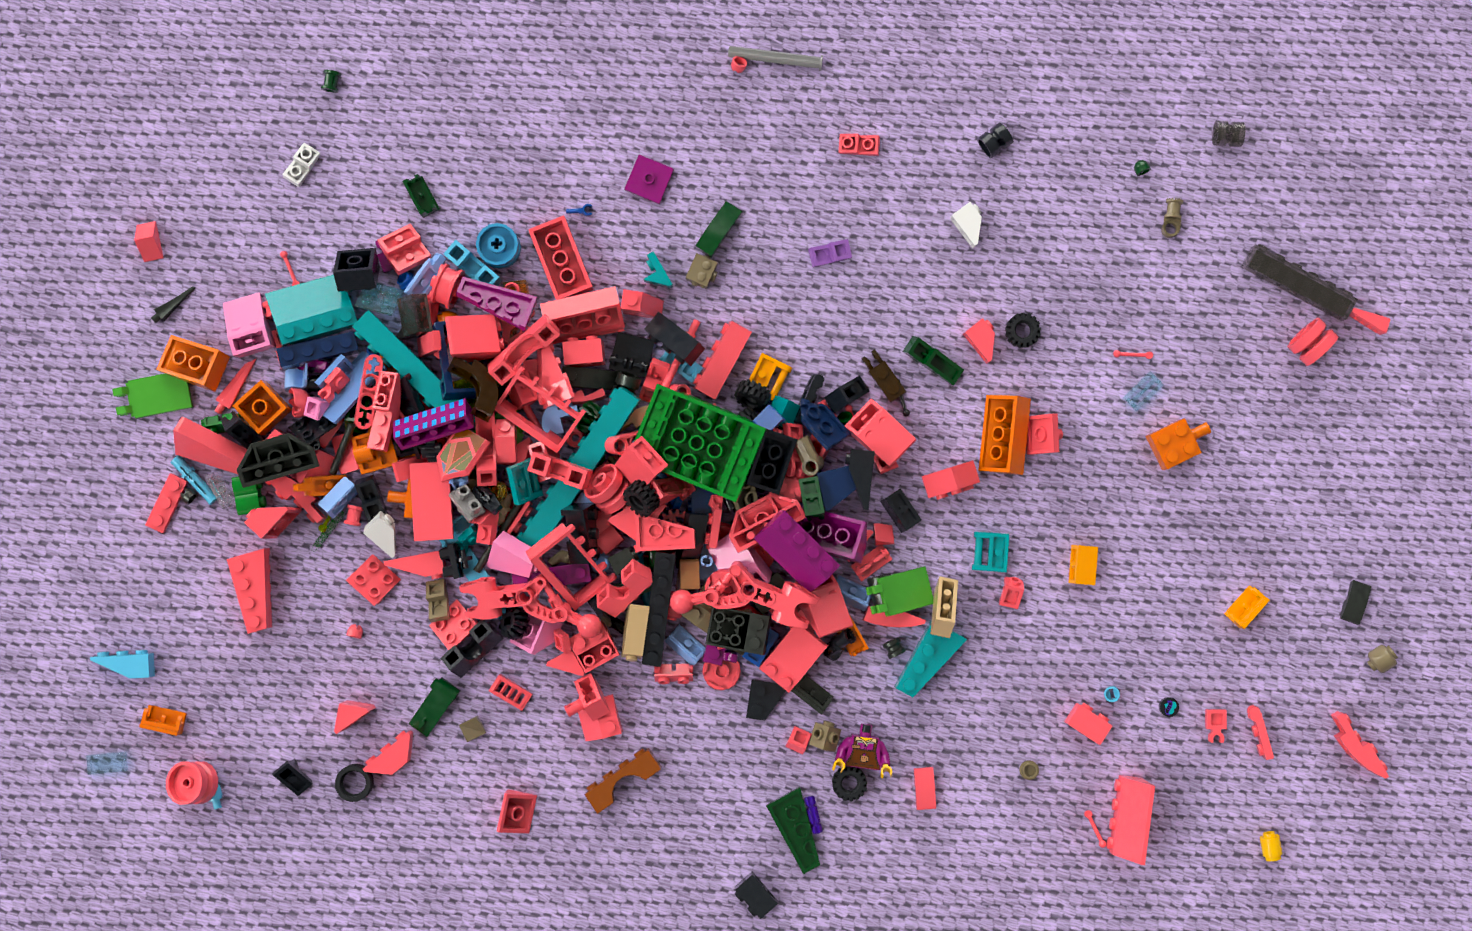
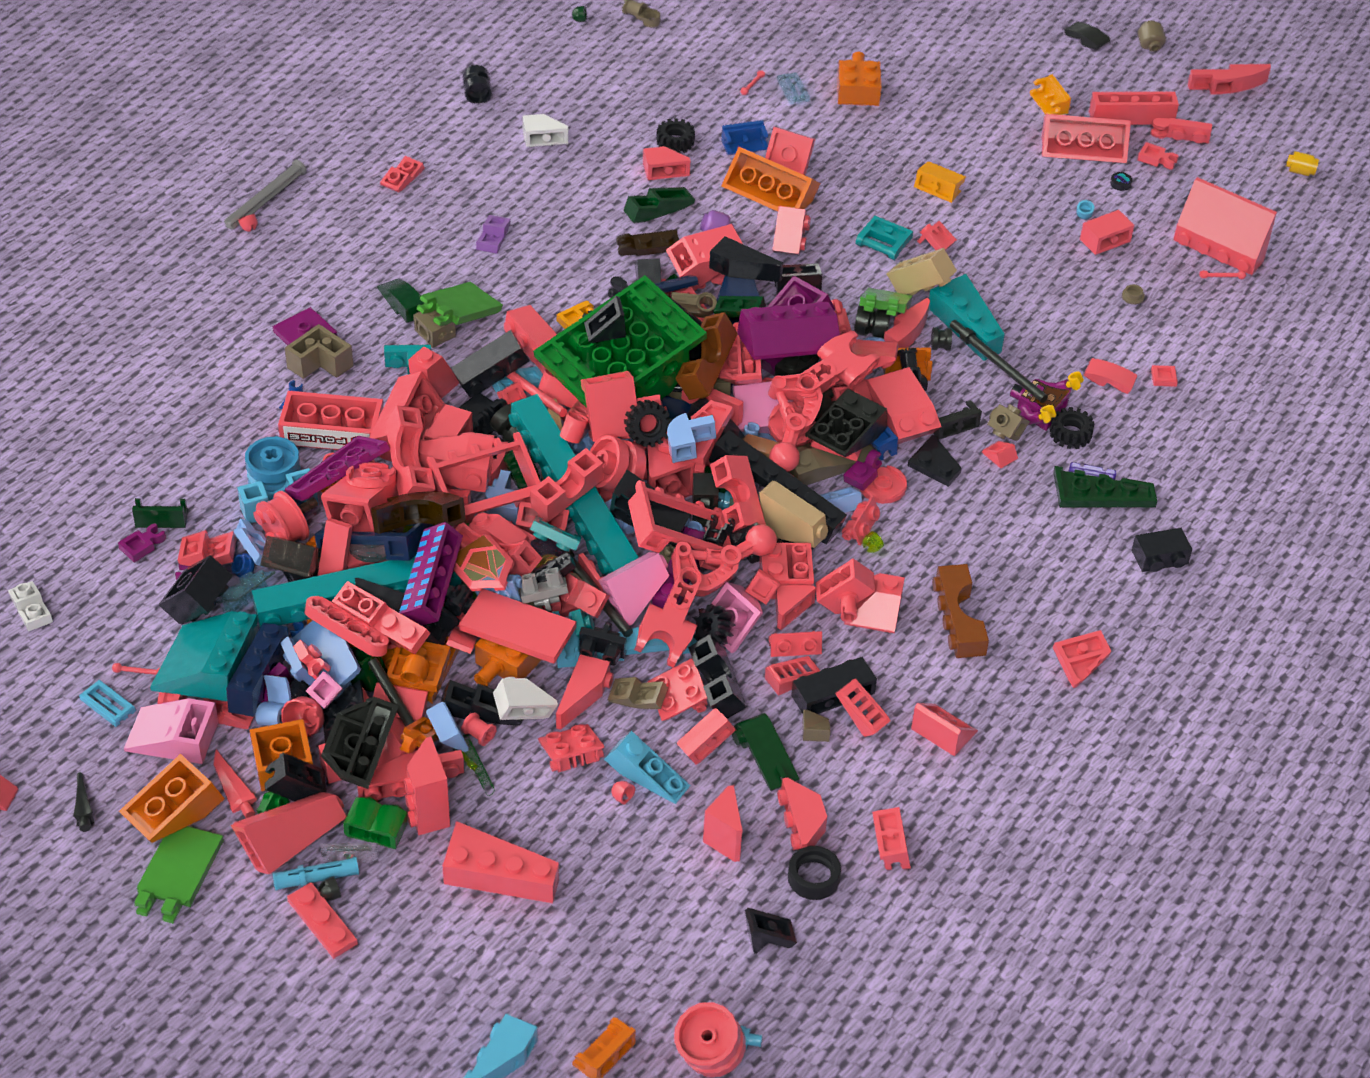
camera: 65 degrees left, 40 degrees down
(260, 269) = (120, 715): none -> medium azure tile
(378, 638) = (643, 766): none -> medium azure slope
(388, 199) = (141, 544): none -> magenta plate
(403, 819) = (891, 837): none -> coral hinge
(421, 664) = (706, 736): none -> coral panel
(491, 334) = (371, 475): none -> coral tile
(496, 765) = (874, 710): none -> coral slope
(509, 725) = (818, 690): none -> black brick
(532, 676) = (795, 644): none -> coral hinge
(588, 583) = (723, 533): none -> black piece
(626, 204) = (316, 350): none -> dark tan brick
(628, 877) = (1082, 655): none -> coral wing
(640, 528) = (685, 433): none -> light blue brick
(656, 690) = (873, 541): none -> clear neon green hinge
(699, 427) = (607, 323): none -> black slope
(728, 279) = (459, 304): none -> bright green tile
(757, 502) = (700, 375): none -> dark orange arch
(899, 670) = (969, 337): none -> pearl dark grey bar
(929, 418) = (714, 220): none -> medium lavender head
(948, 827) = (1164, 375): none -> coral tile
(1050, 386) = (744, 135): none -> blue hinge
(1204, 658) = (1085, 138): none -> coral slope
(1264, 684) = (1134, 106): none -> coral brick

